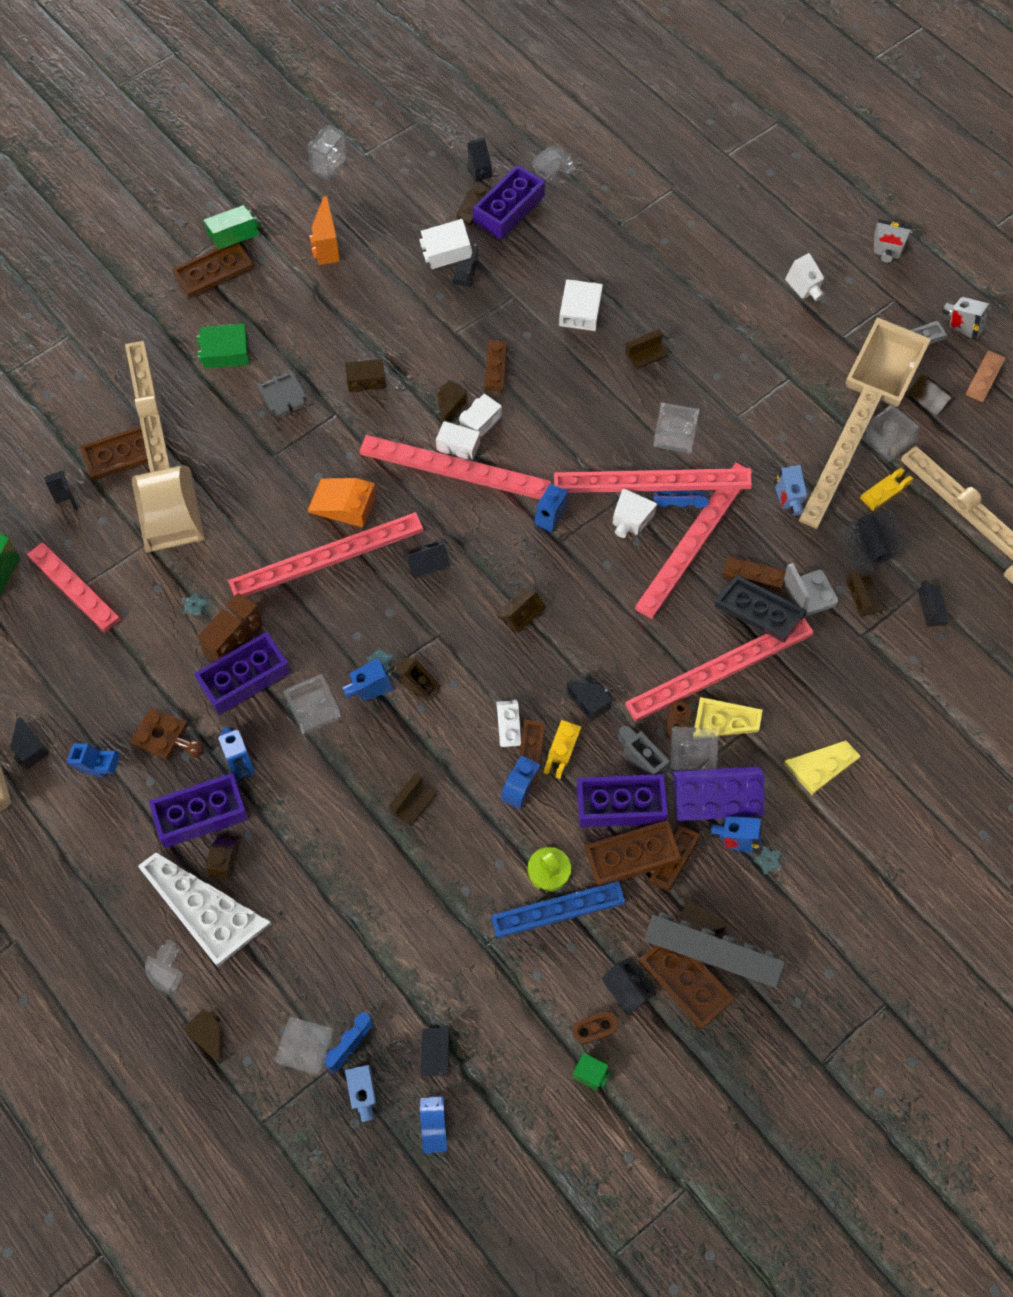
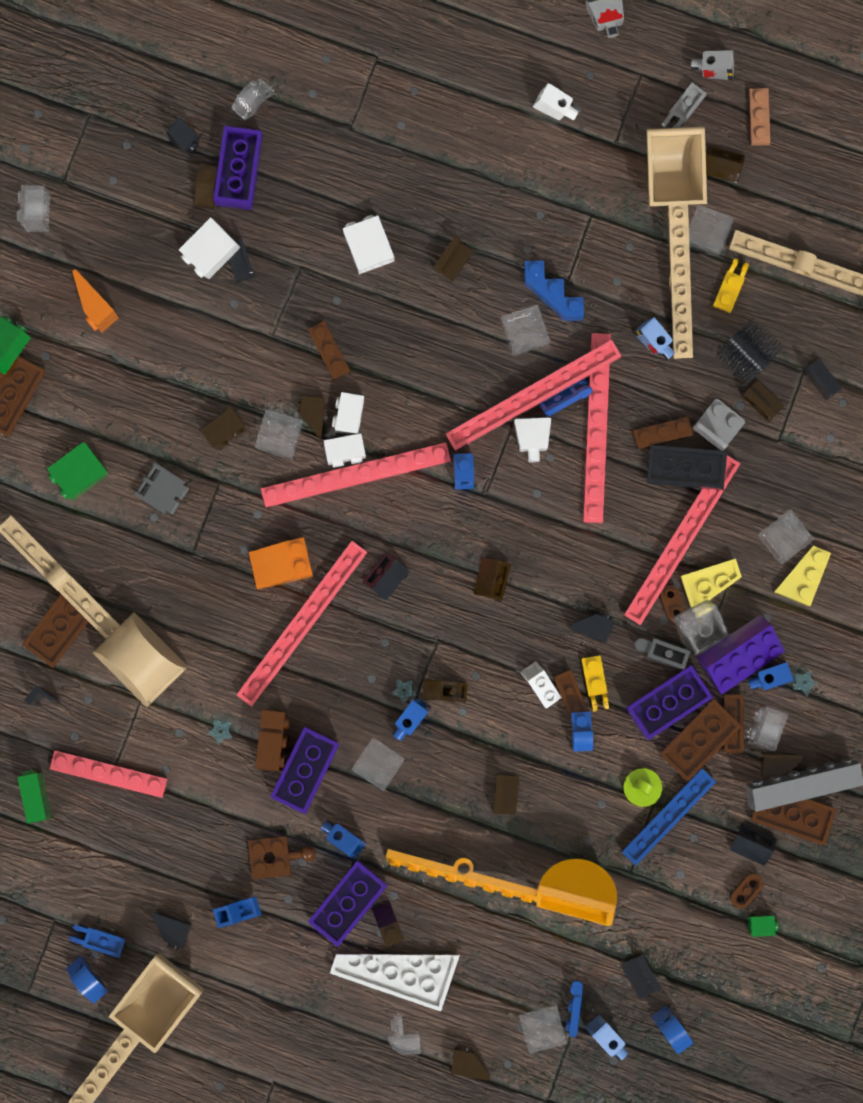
camera: 35 degrees left, 20 degrees up
(409, 399) = (279, 434): none -> clear brick
(409, 908) = (568, 887): none -> light orange plate
(706, 876) = (767, 728): none -> clear brick
(719, 413) = (552, 292): none -> blue brick
(822, 717) = (785, 537): none -> clear brick

